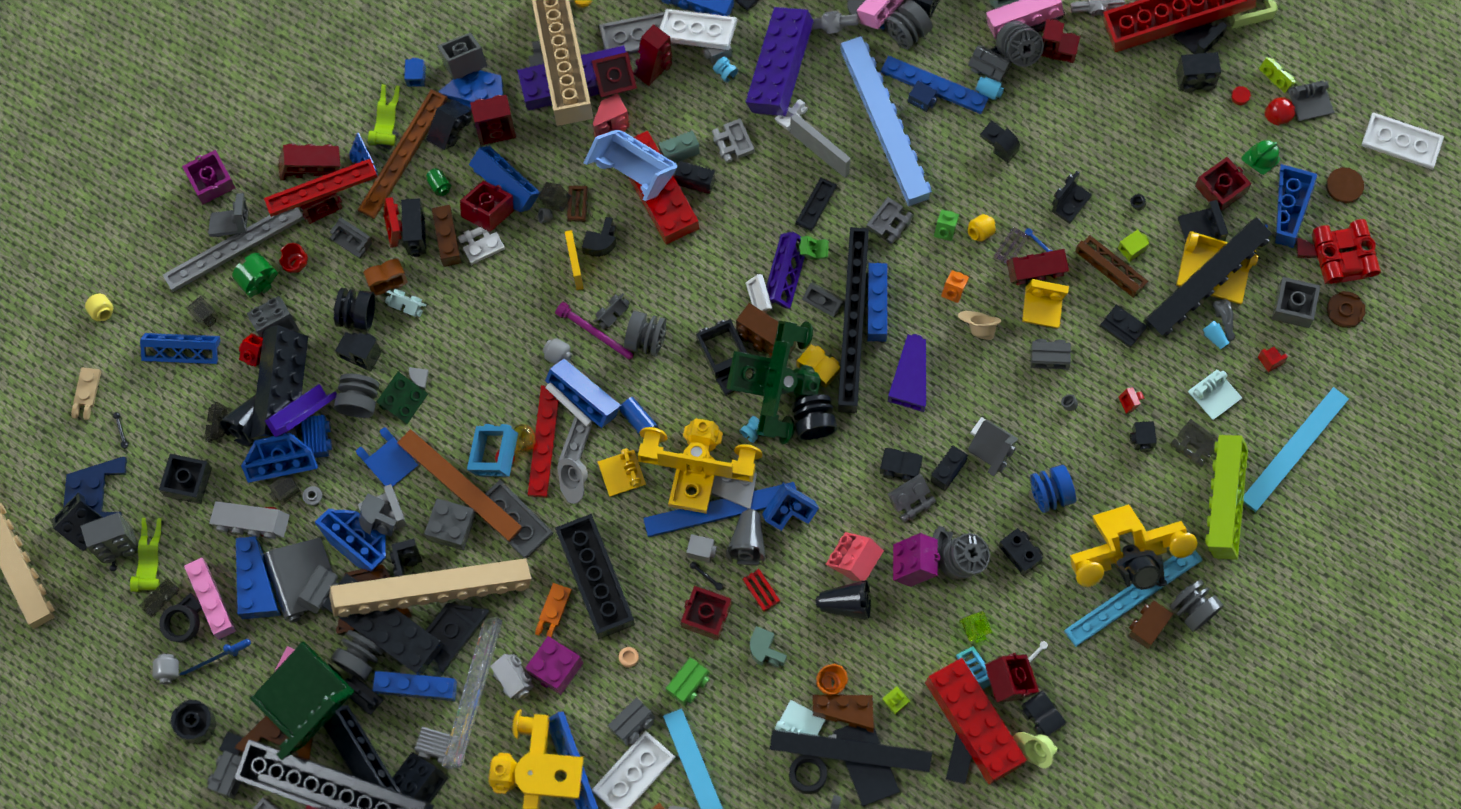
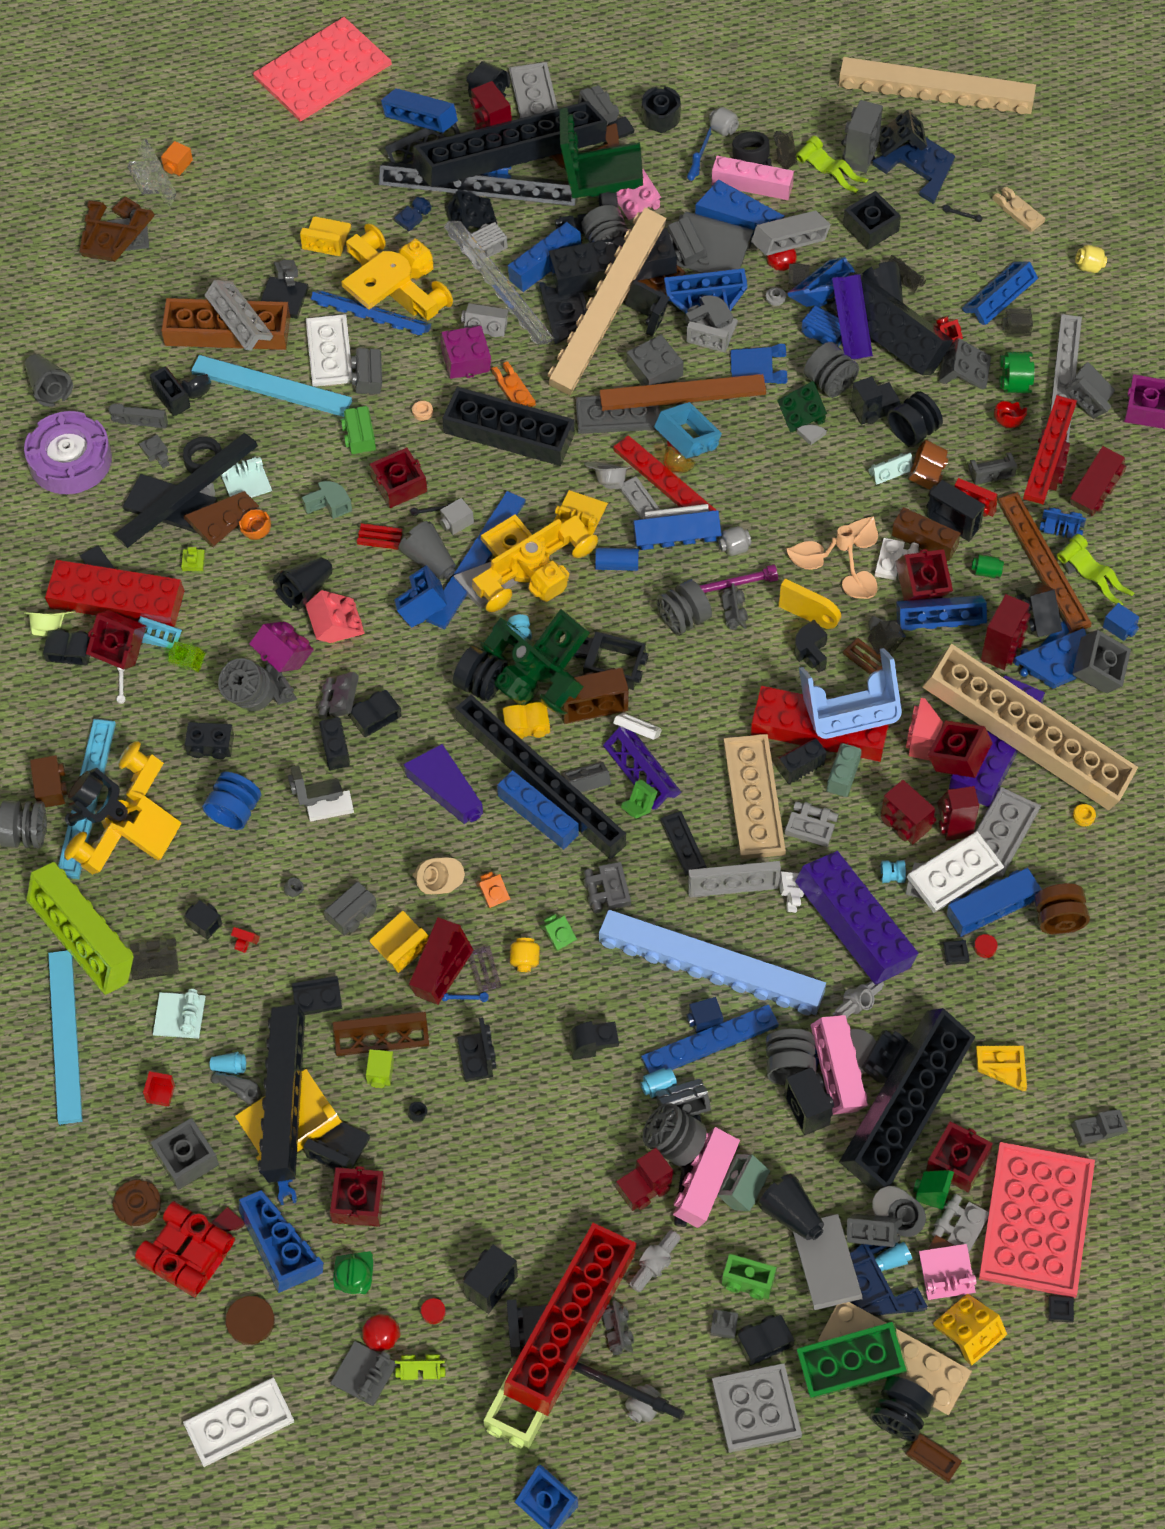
camera: 130 degrees right, 10 degrees down
(478, 279) = (862, 534): none -> light nougat plant
(680, 85) = (907, 812): none -> dark red brick
(744, 188) = (754, 796): none -> tan plate

